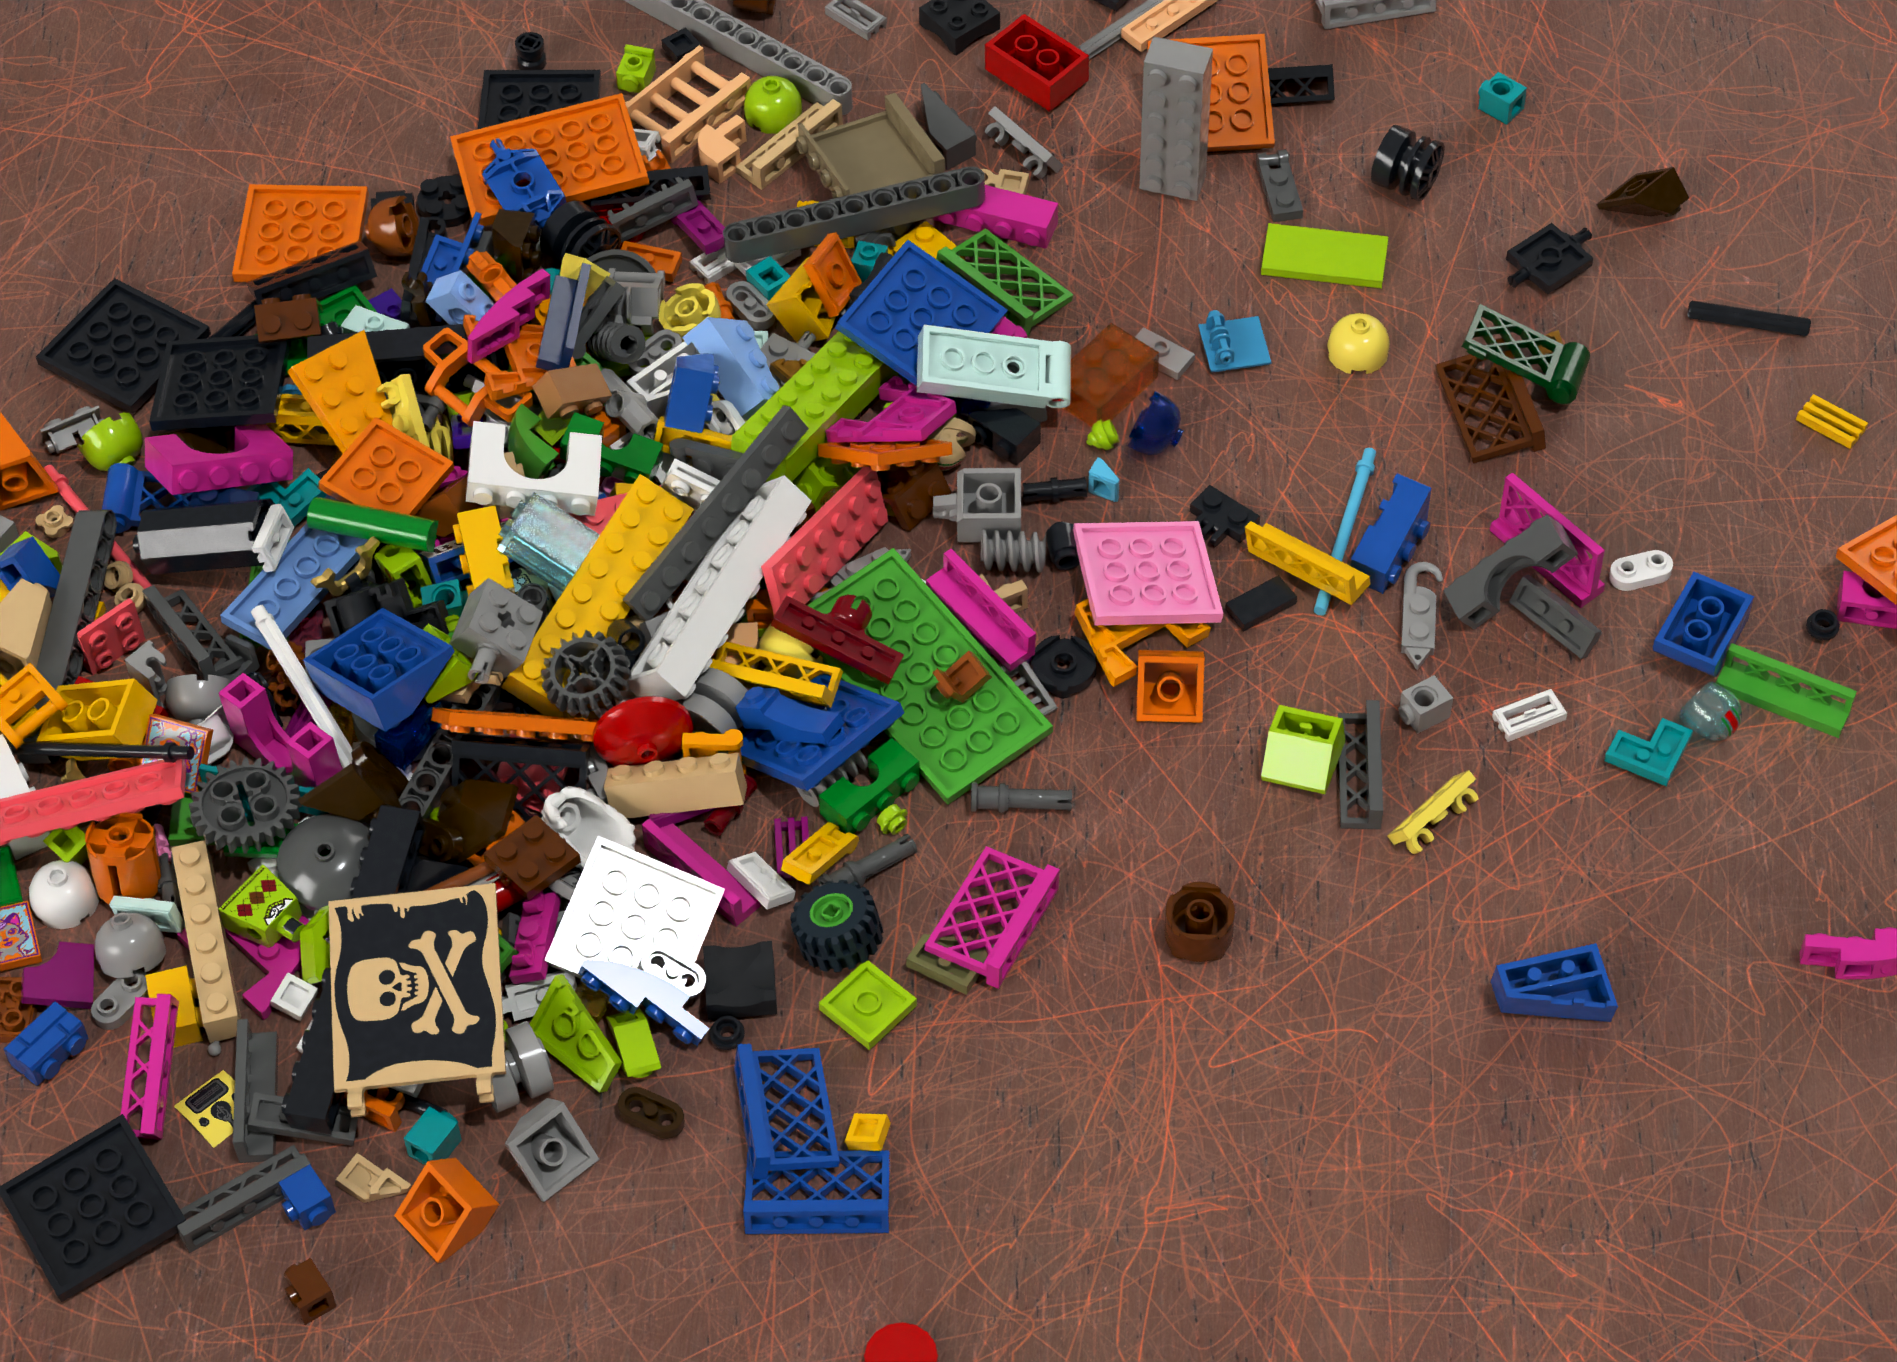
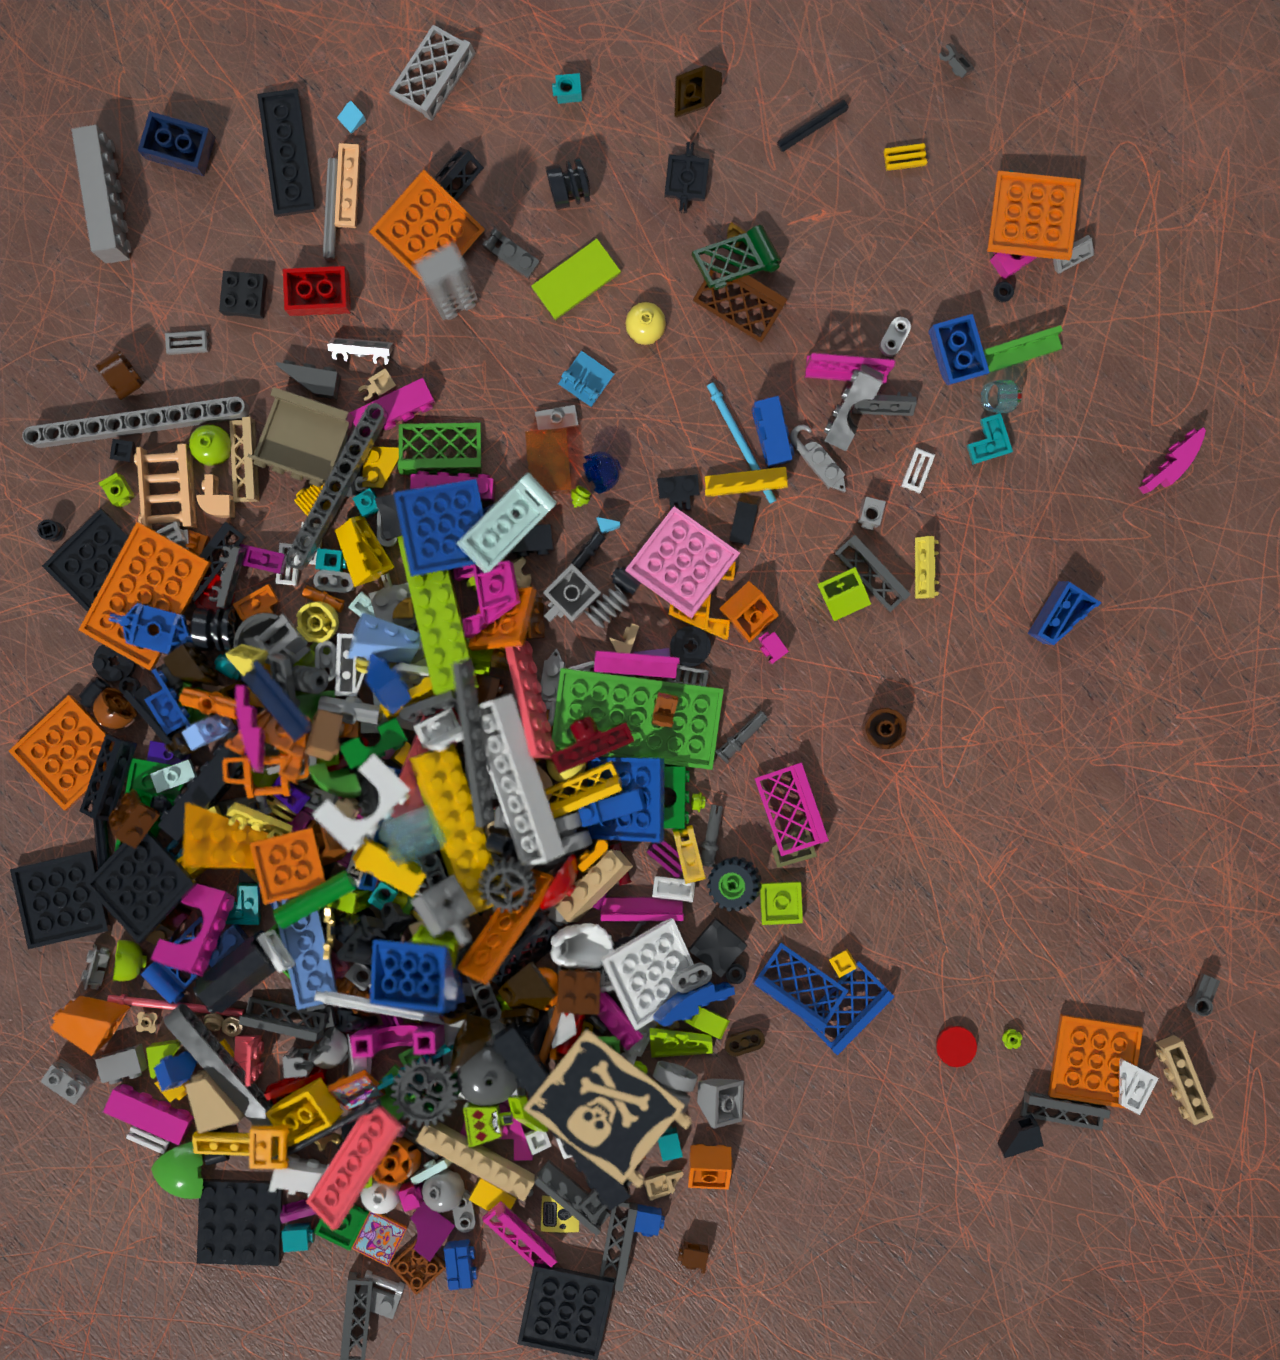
camera: 45 degrees left, 35 degrees up
(87, 918) = (411, 1195): none -> dark pink brick
(832, 274) = (365, 535): orange tile -> none
(1157, 741) = (772, 646): none -> dark pink brick

